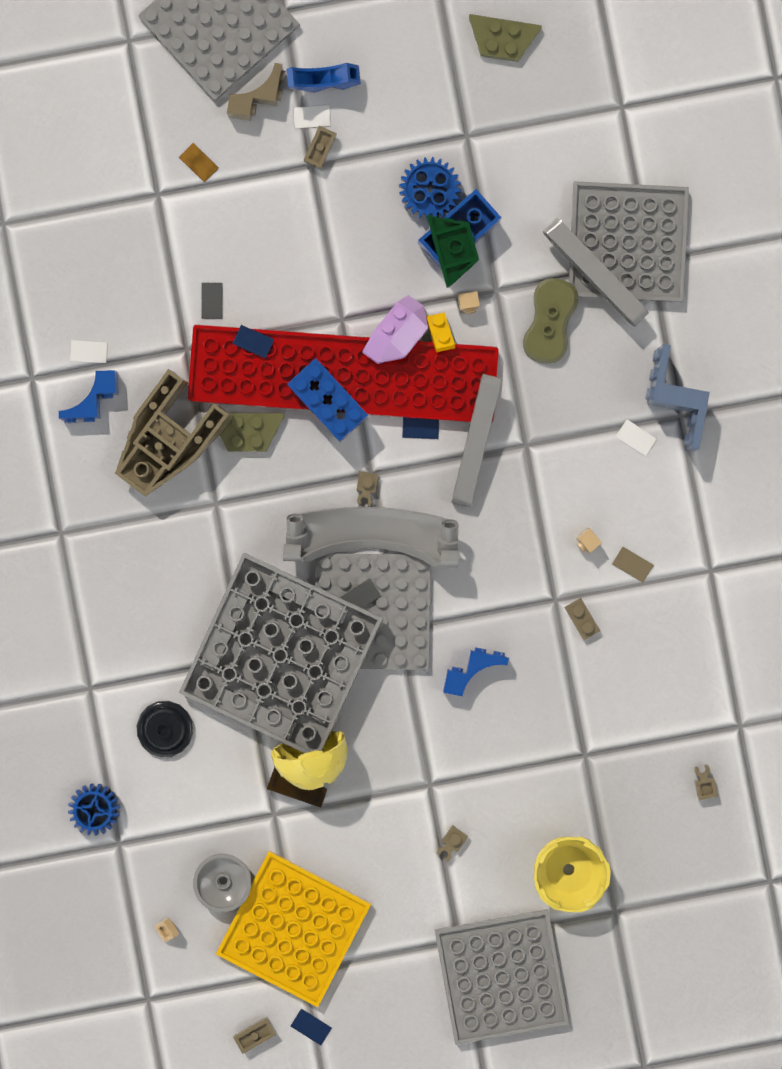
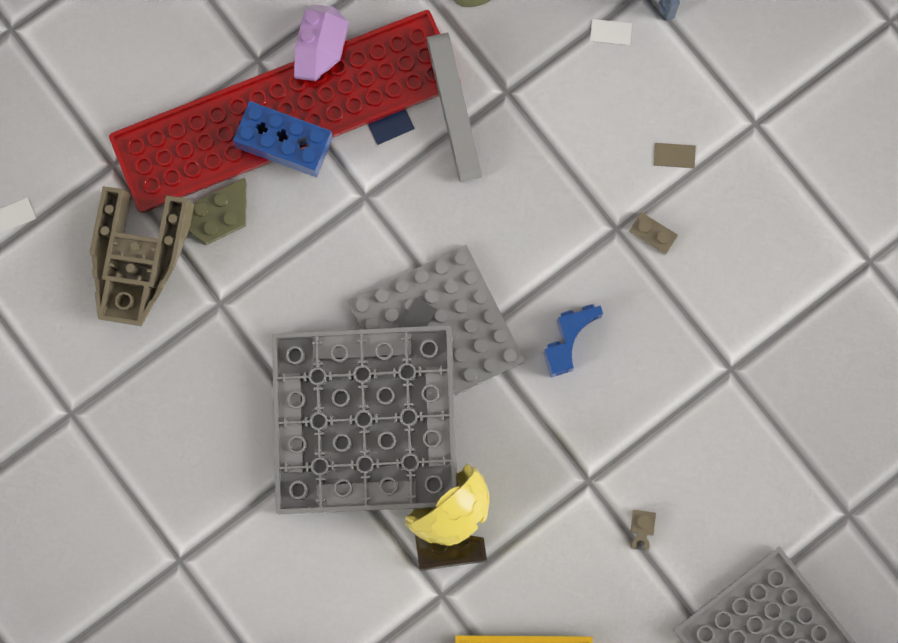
camera: 30 degrees left, 10 degrees down
(89, 409) = (39, 271): blue arch -> none
(164, 729) = (280, 562): black piece -> none
(212, 300) = (116, 105): dark grey sticker -> none
(253, 341) = (177, 121): dark blue sticker -> none
(347, 528) = (414, 238): light grey panel -> none
(367, 484) = (365, 208): dark tan plate -> none
(440, 332) = (363, 22): yellow plate -> none
(576, 890) = (801, 482): light yellow piece -> none
(588, 541) = (618, 152): tan plate -> none
(705, 785) = (869, 337): dark tan plate -> none

